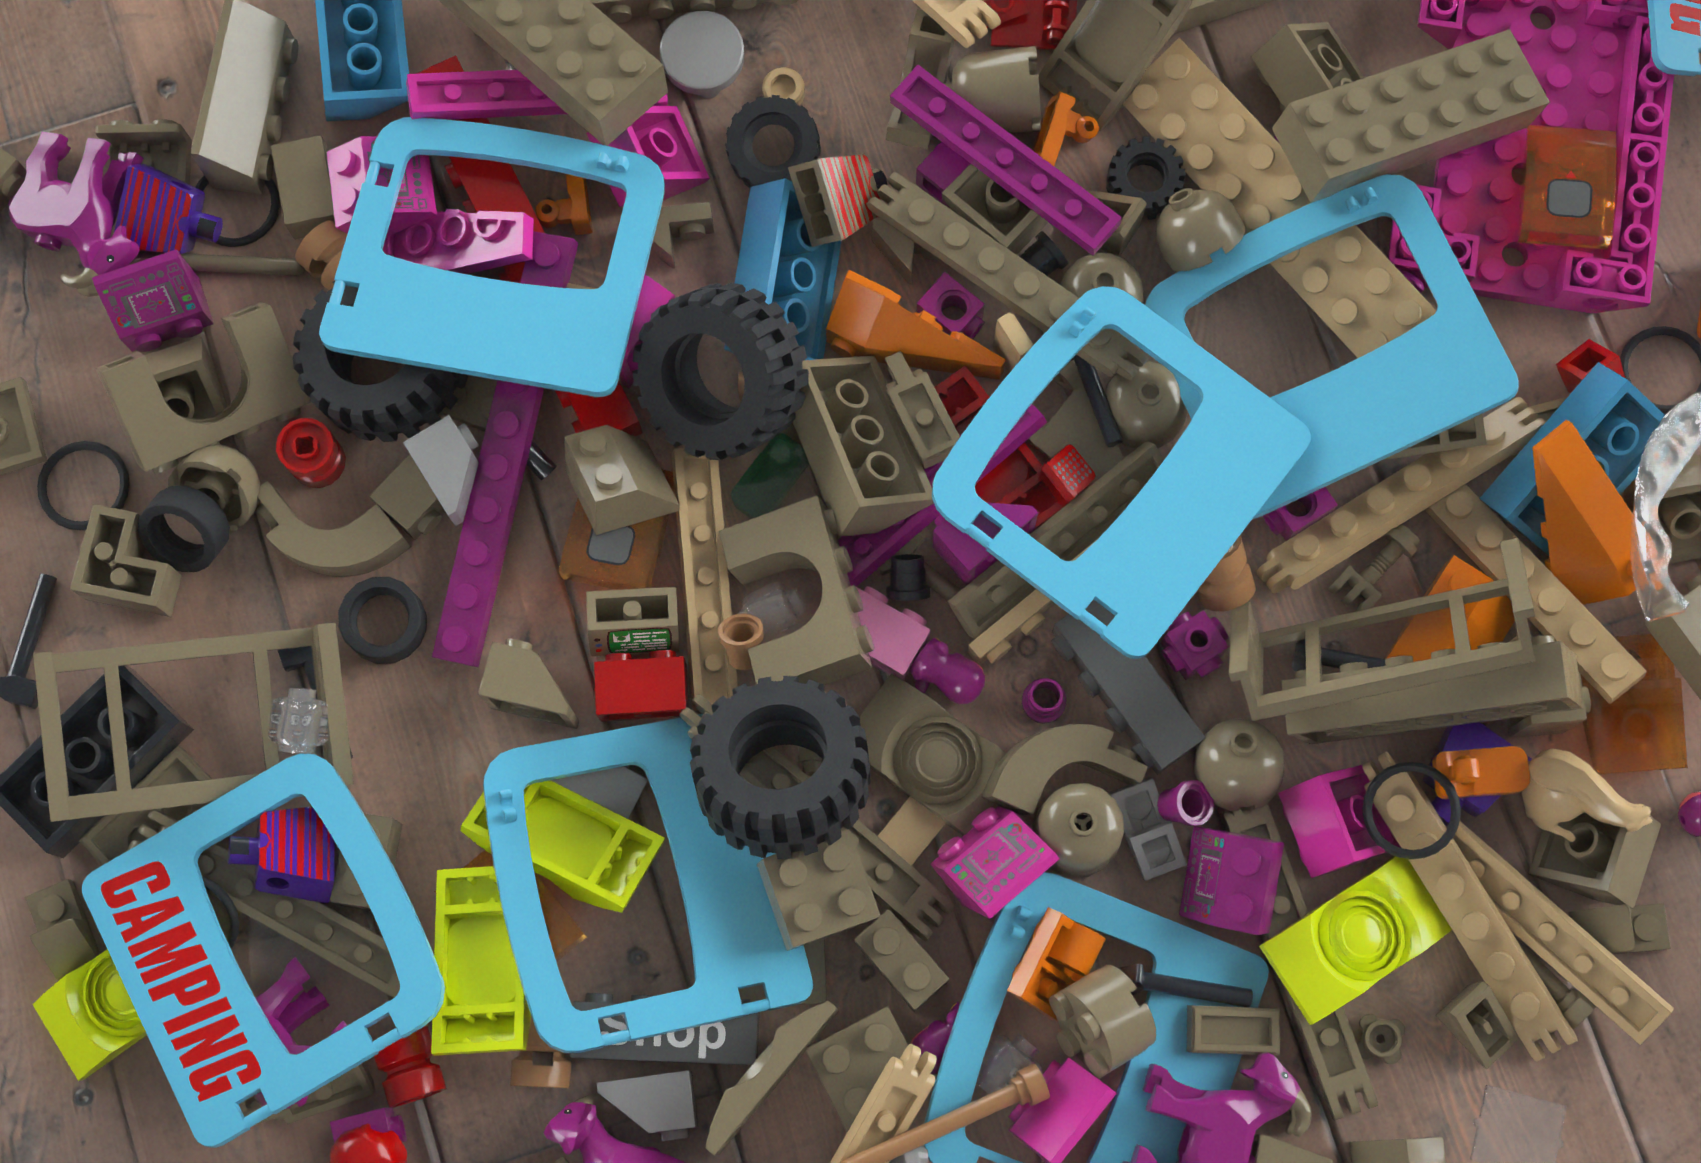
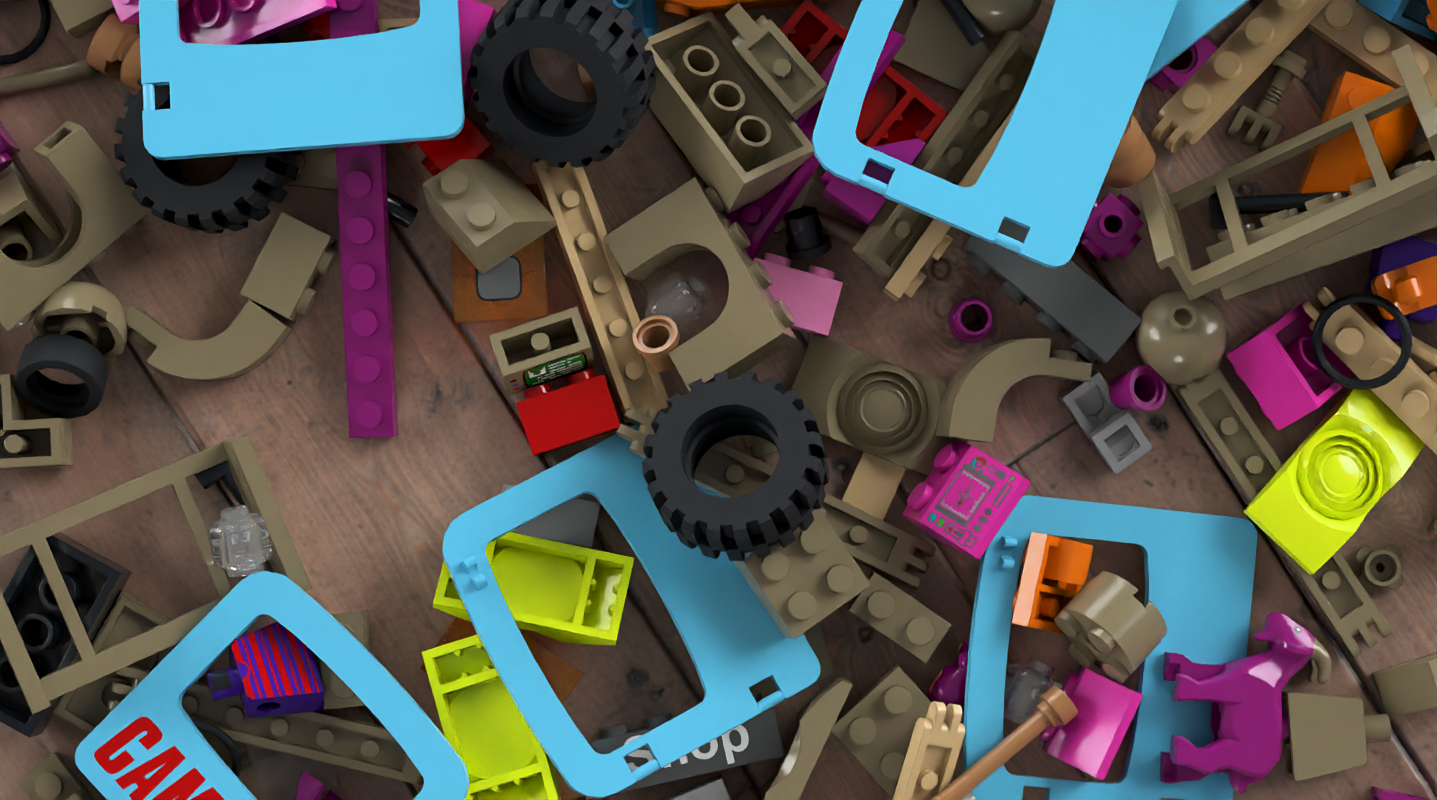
camera: 20 degrees left, 10 degrees up
(310, 453) = (165, 262): red wheel -> none
(359, 596) = (254, 406): black tyre -> none
(447, 464) = (311, 243): light grey slope -> none
(523, 686) = (453, 443): dark tan slope -> none
(770, 477) = (637, 166): clear green piece -> none
(952, 674) = (875, 319): magenta animal -> none
(1068, 472) = (938, 83): red slope -> none
(1082, 850) = (1017, 441): dark tan cylinder -> none
(1187, 987) = (1182, 570): black piece -> none
(1231, 880) = (1201, 454): magenta slope -> none
(1233, 1030) = (1236, 597): dark tan tile -> none

